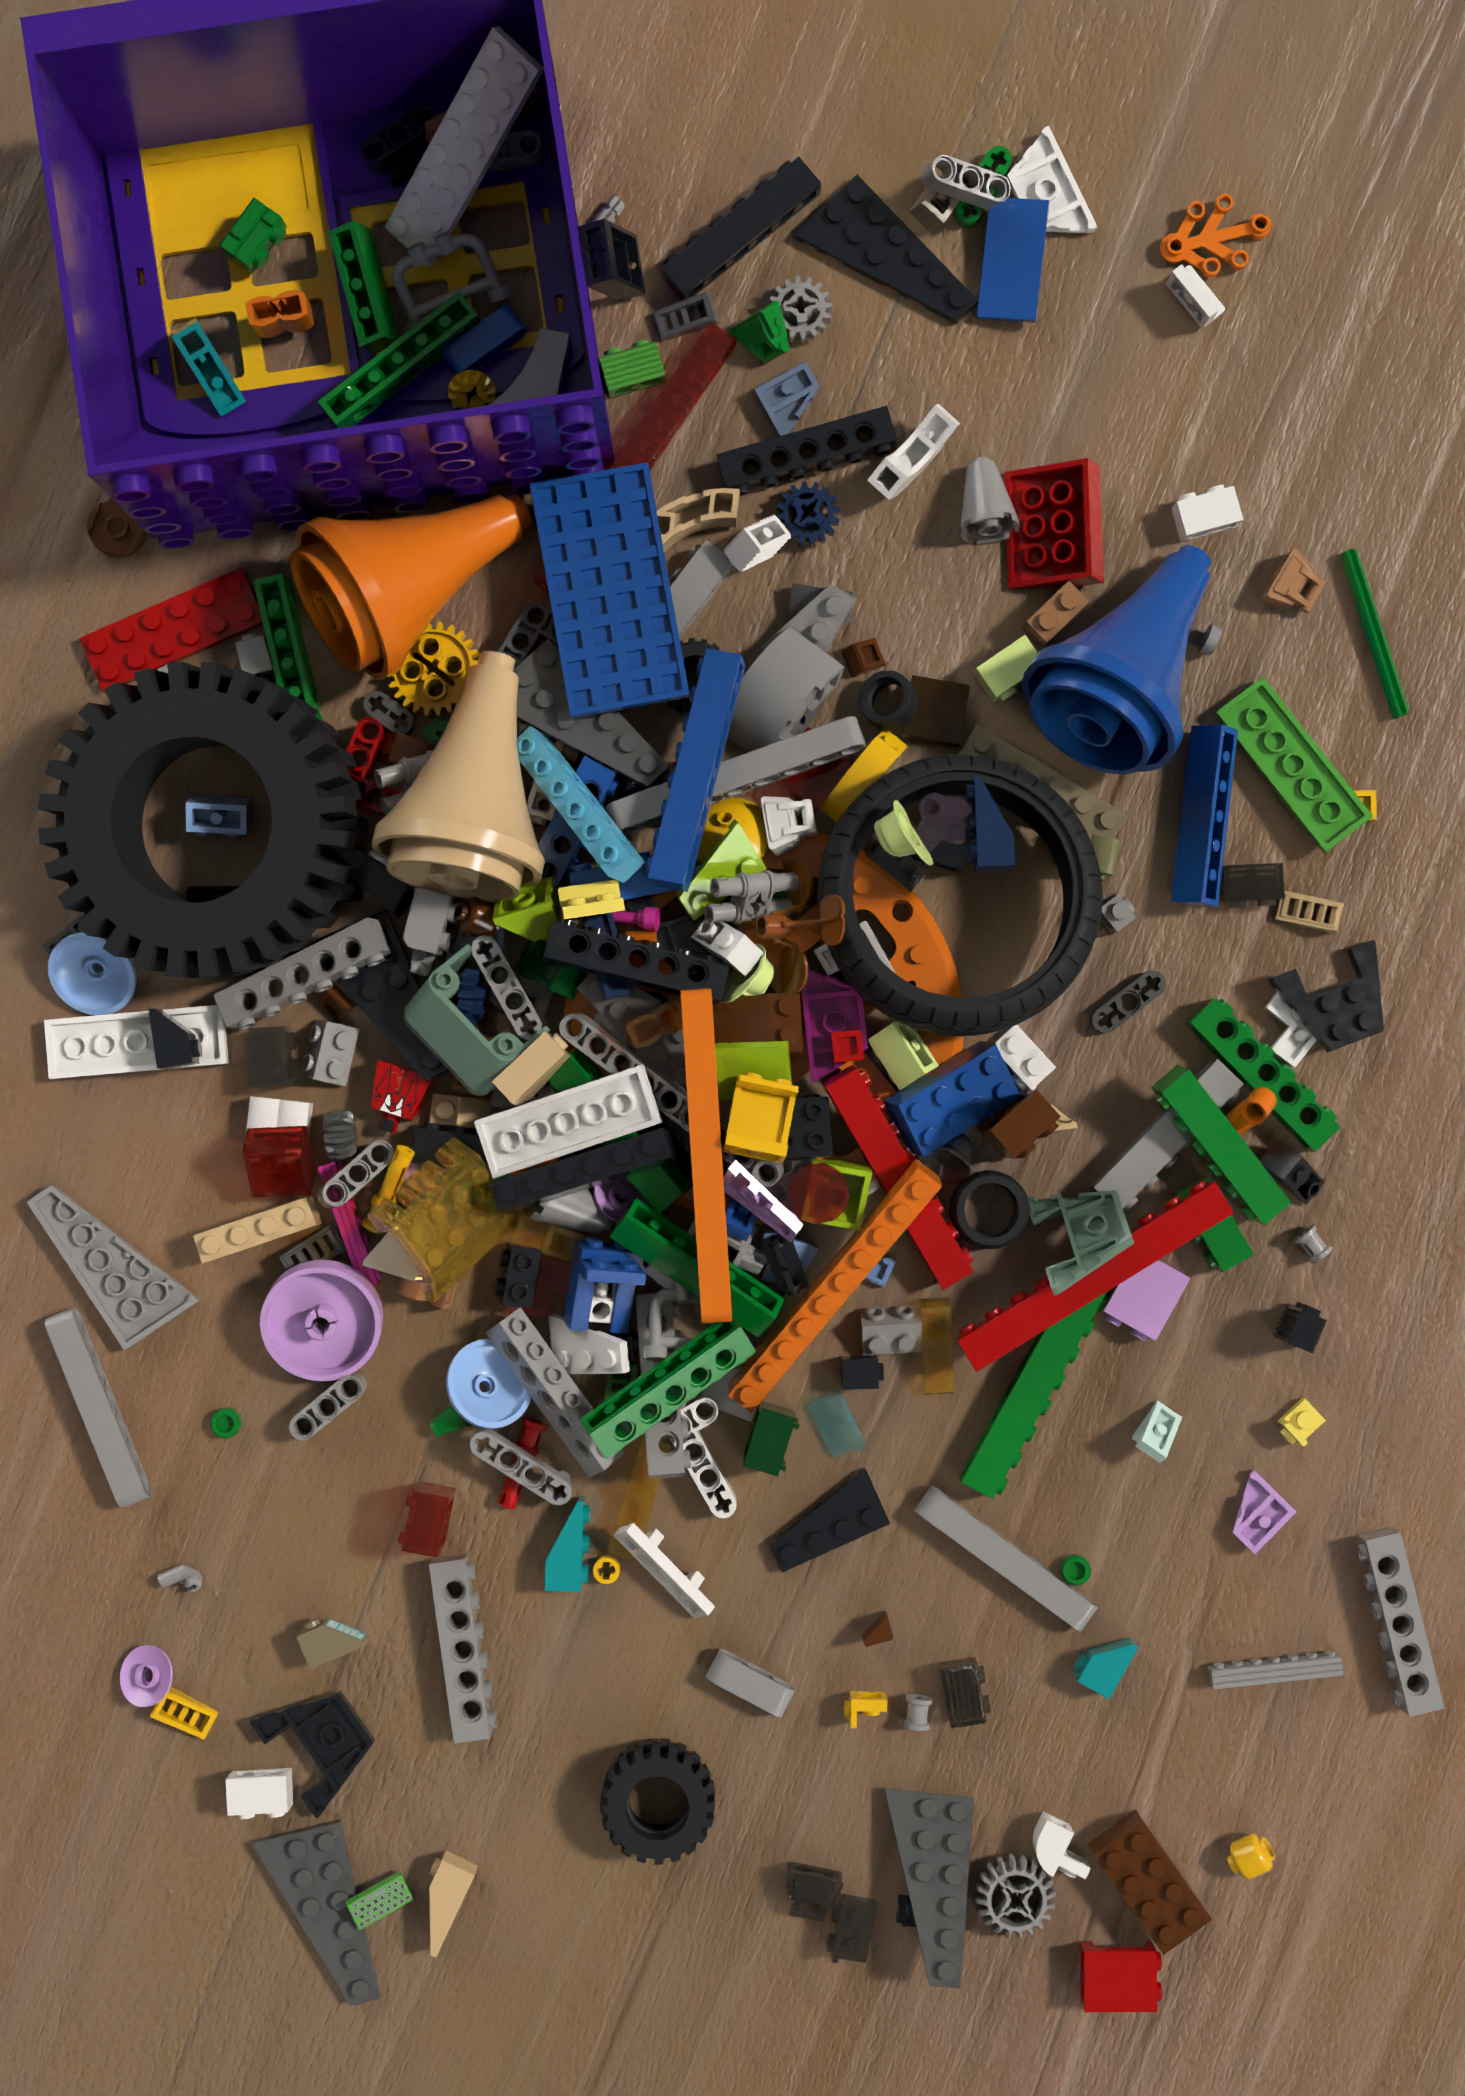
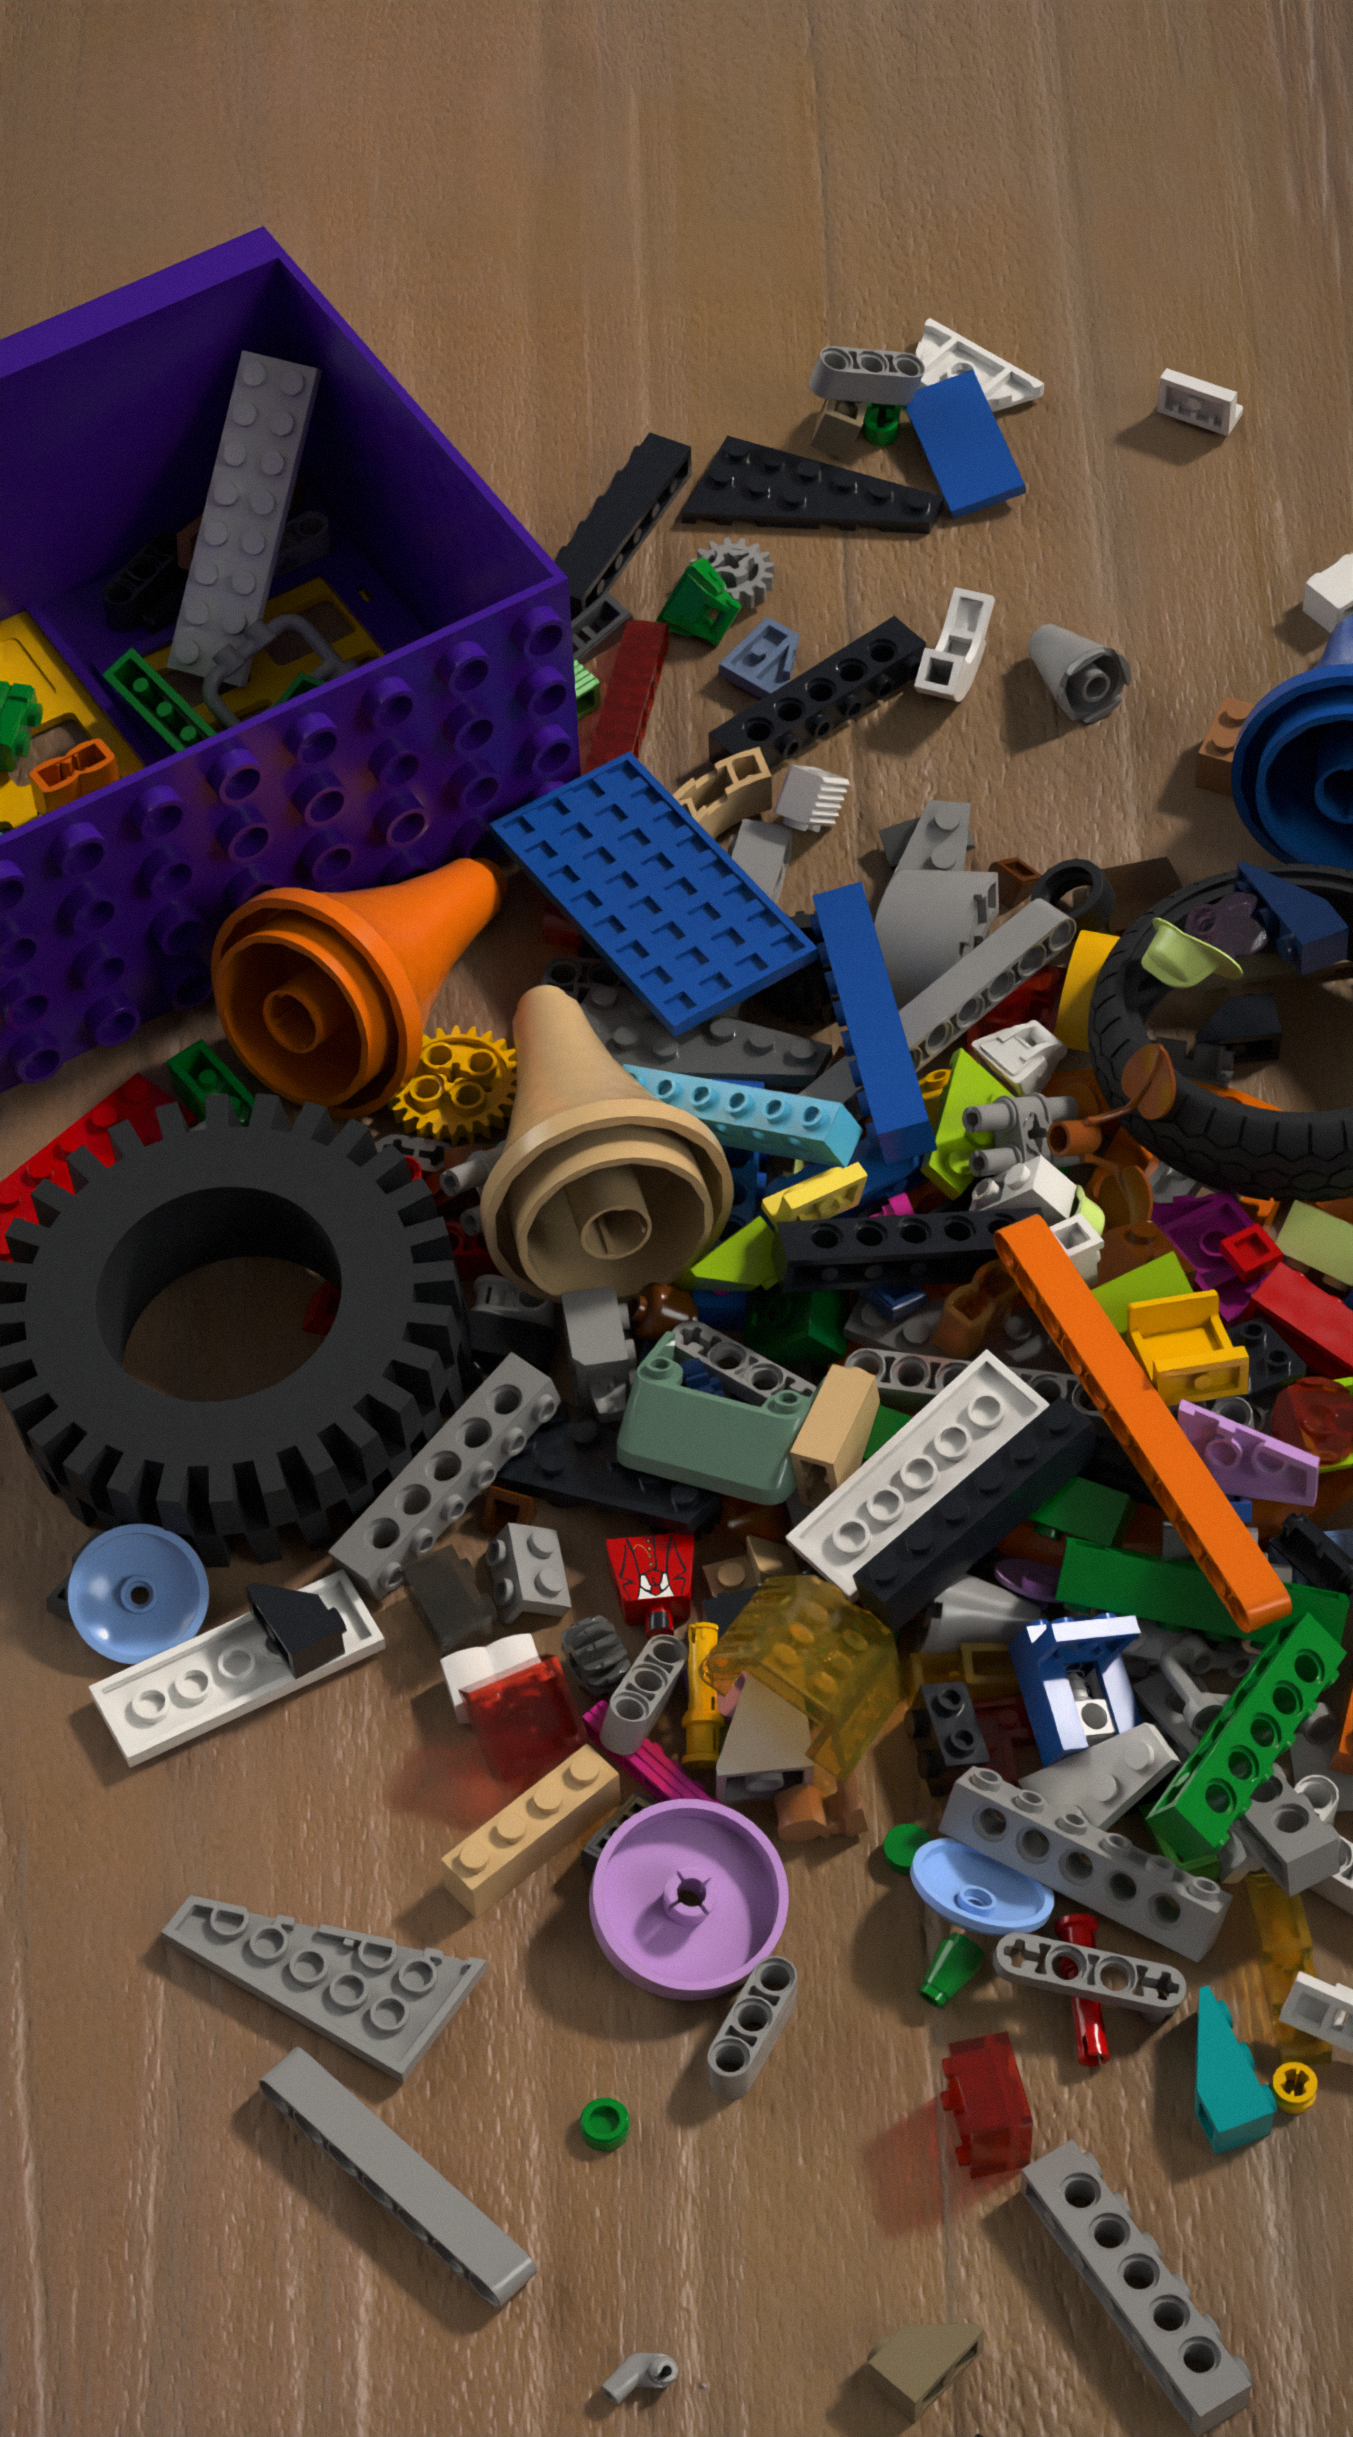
camera: 20 degrees left, 35 degrees down
(218, 815) = (236, 1343): light blue brick -> none
(466, 1329) = (902, 1844): none -> green tile
(728, 1015) = (1081, 1245): none -> white brick
(816, 522) = (861, 757): dark blue gear -> none
(1006, 669) = (1202, 818): yellowish green brick -> none
(1058, 526) = (1176, 664): red slope -> none
(1211, 239) = (1146, 374): orange plant -> none

